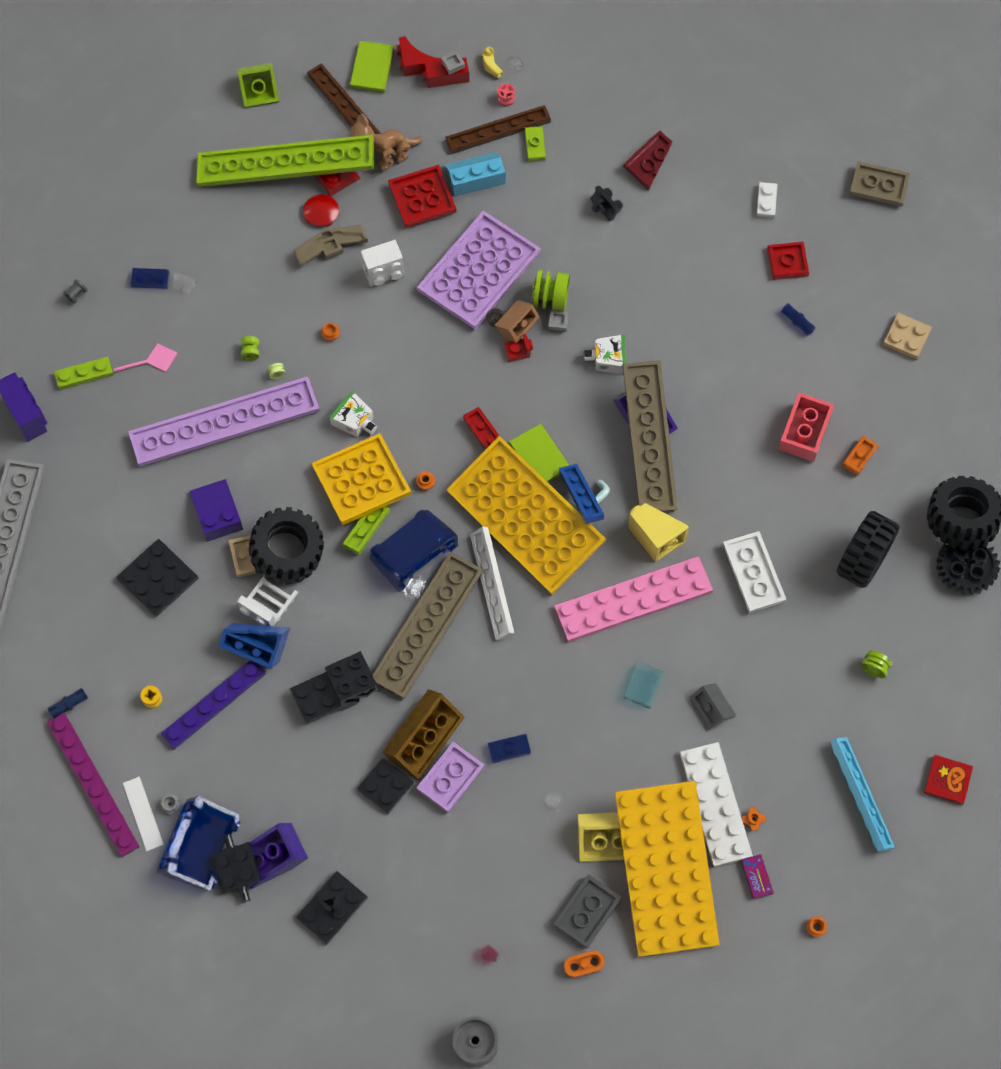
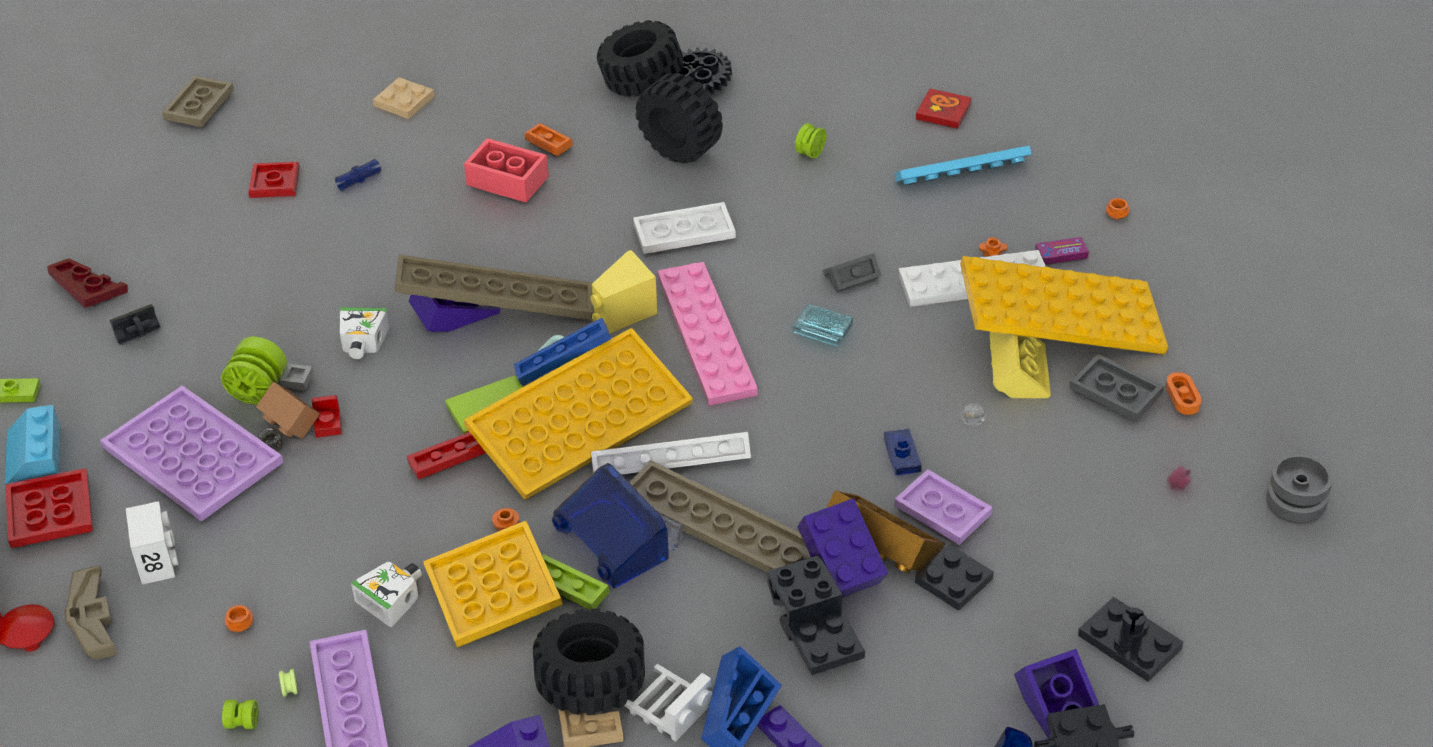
camera: 85 degrees left, 25 degrees down
(389, 702) = (844, 546): none -> dark purple brick
(766, 200) = (183, 190): white plate -> none

